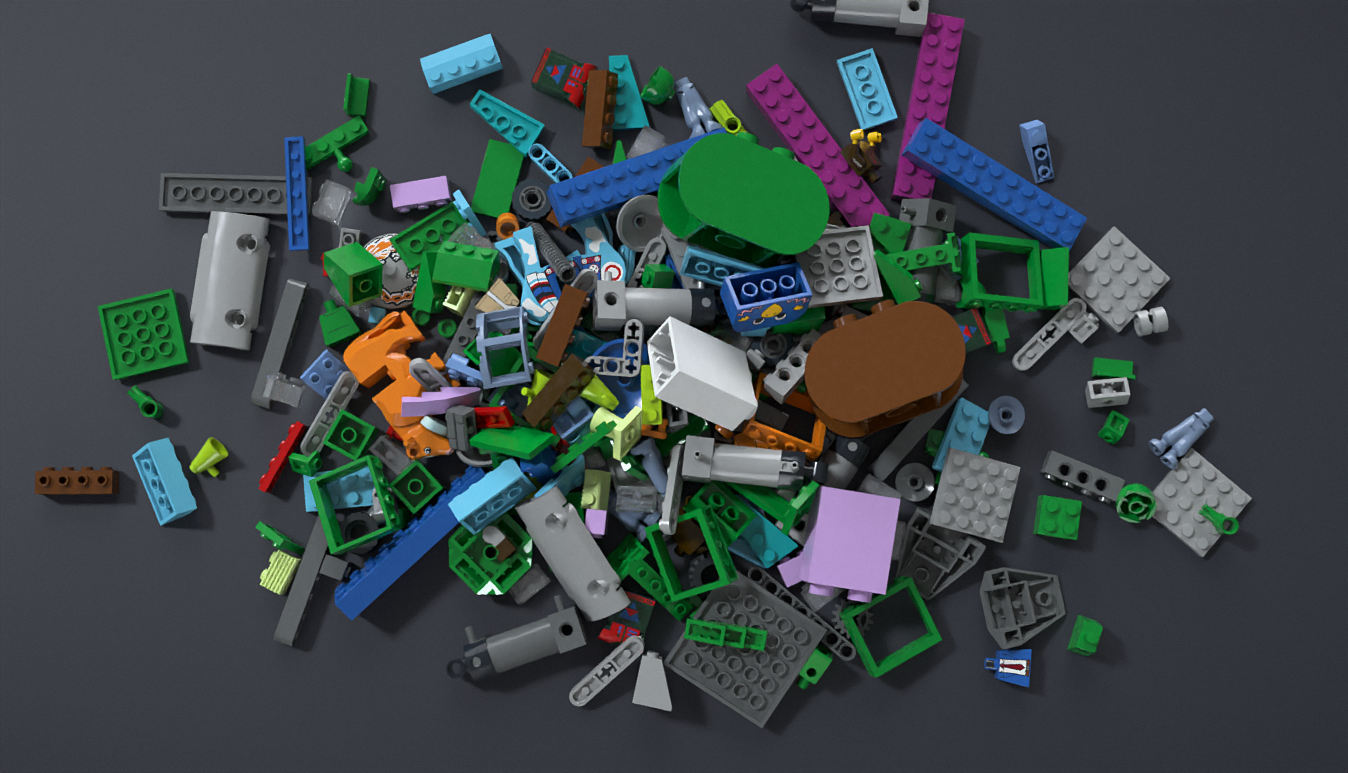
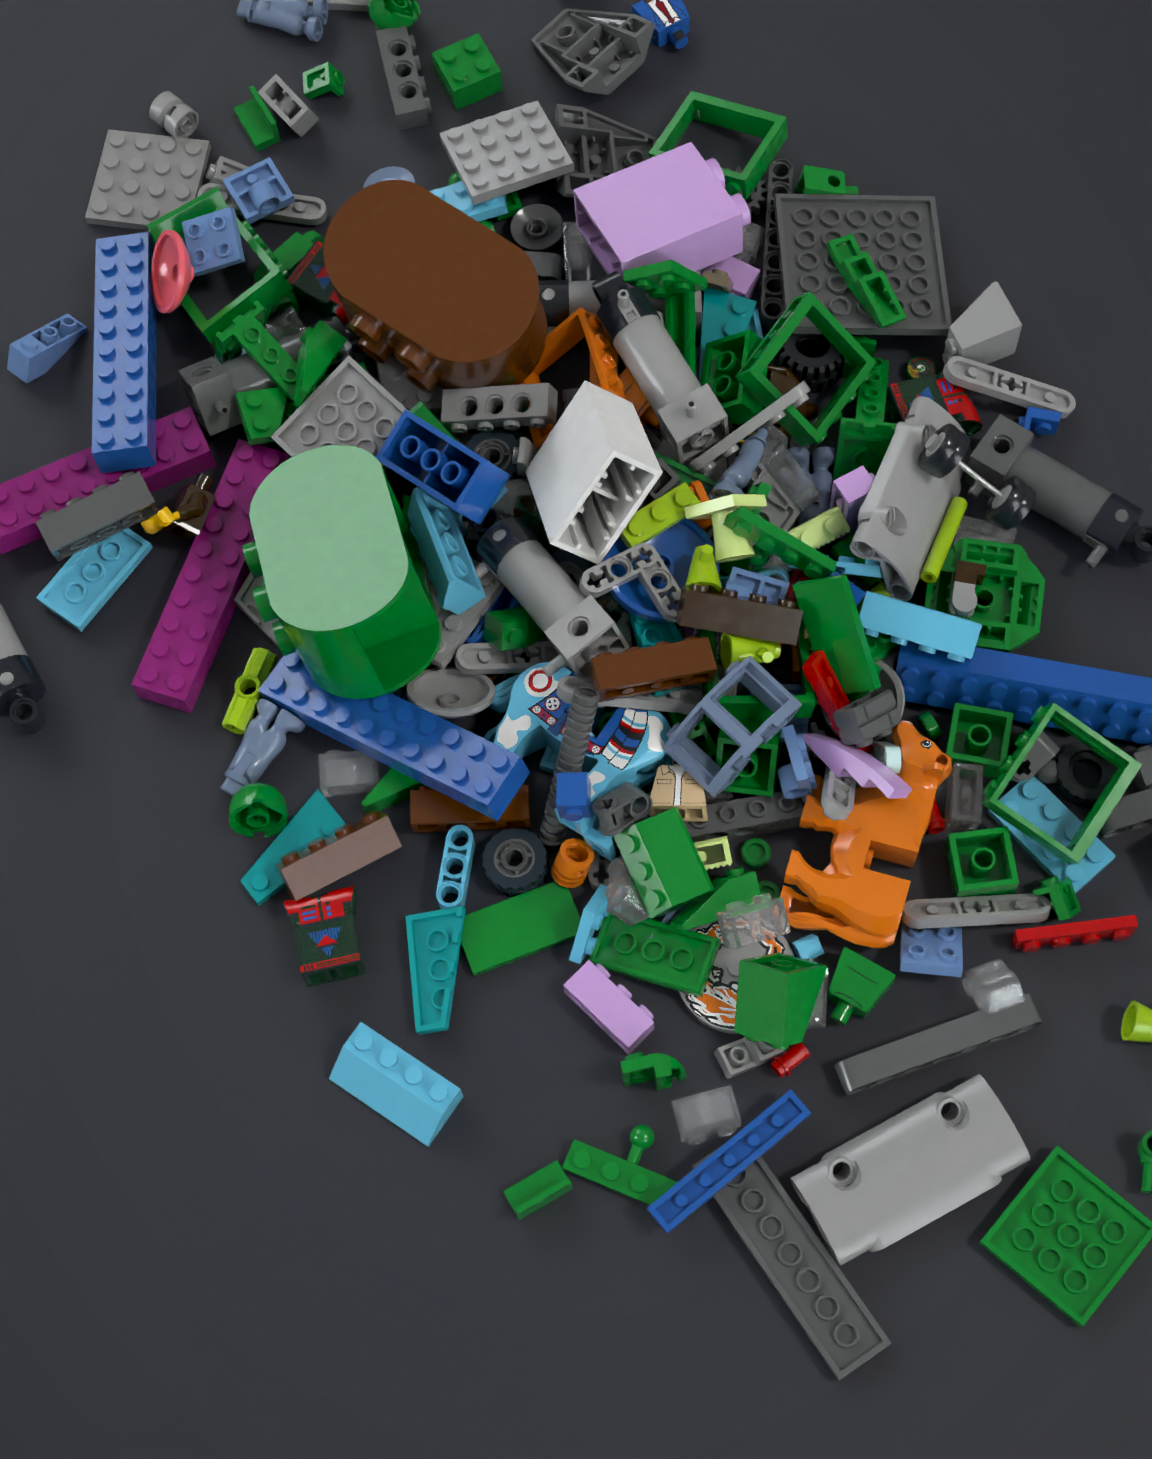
camera: 125 degrees left, 15 degrees down
(403, 291) = (753, 922): none -> clear brick
(447, 470) = (929, 725): none -> green tile
(507, 263) = (622, 807): none -> dark grey piece
(526, 237) = (573, 795): none -> blue brick
(538, 555) = (943, 540): none -> lime piece
(574, 675) = (1040, 421): none -> blue bracket
(575, 585) = (1009, 501): none -> black axle
(660, 634) = (919, 367): none -> tile
(793, 553) = (718, 280): none -> dark tan plate
(890, 104) = (97, 516): none -> dark grey brick
(1022, 239) = (170, 271): none -> coral dish
(1026, 276) = (213, 241): none -> medium blue plate
(1055, 334) = (259, 190): none -> medium blue plate

